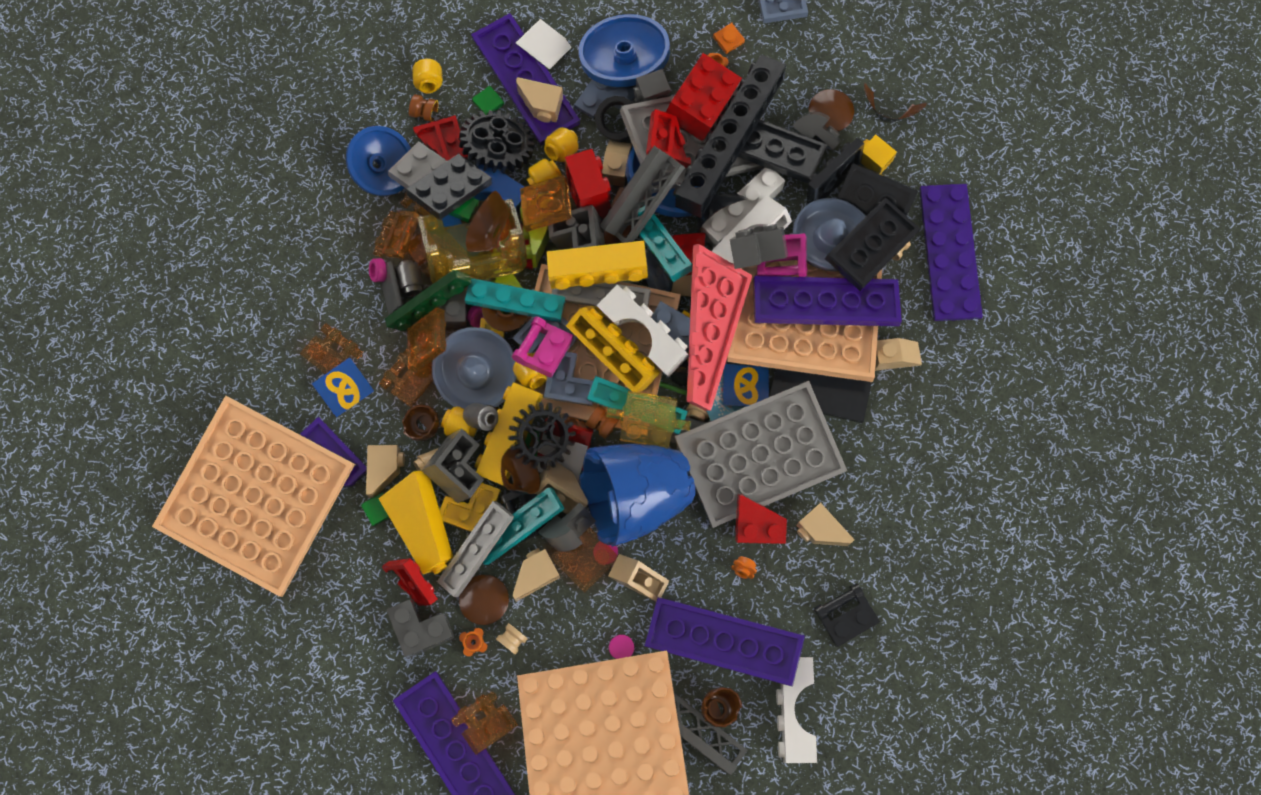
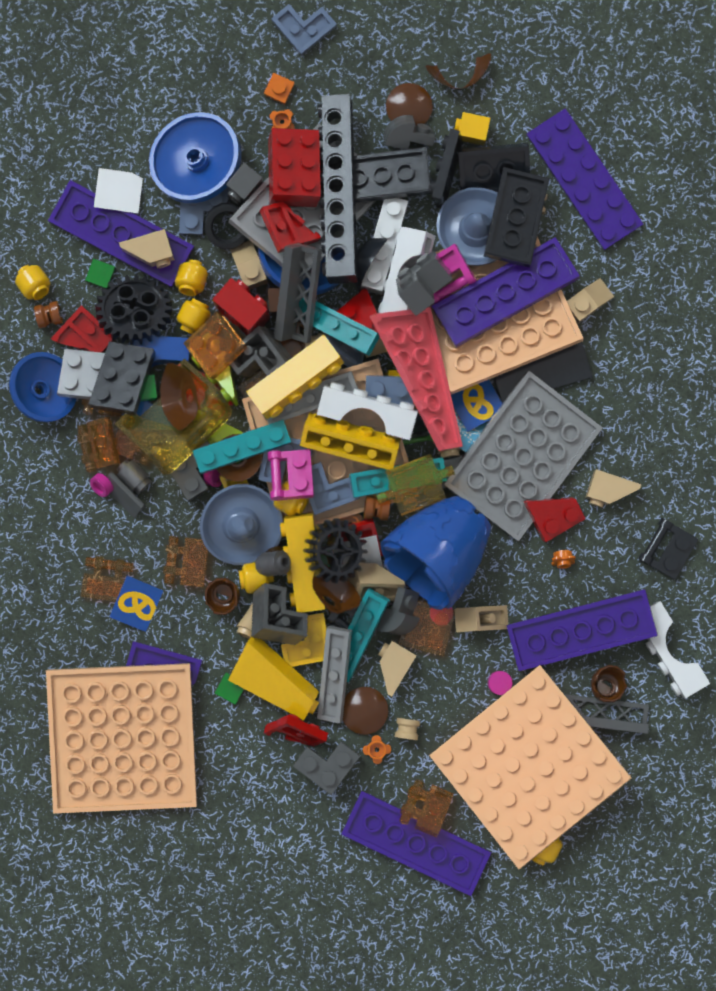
camera: 30 degrees left, 10 degrees up
(382, 467) = (213, 651): tan slope -> none
(426, 339) = (185, 524): clear orange plate -> none
(429, 299) = (171, 484): dark green plate -> none

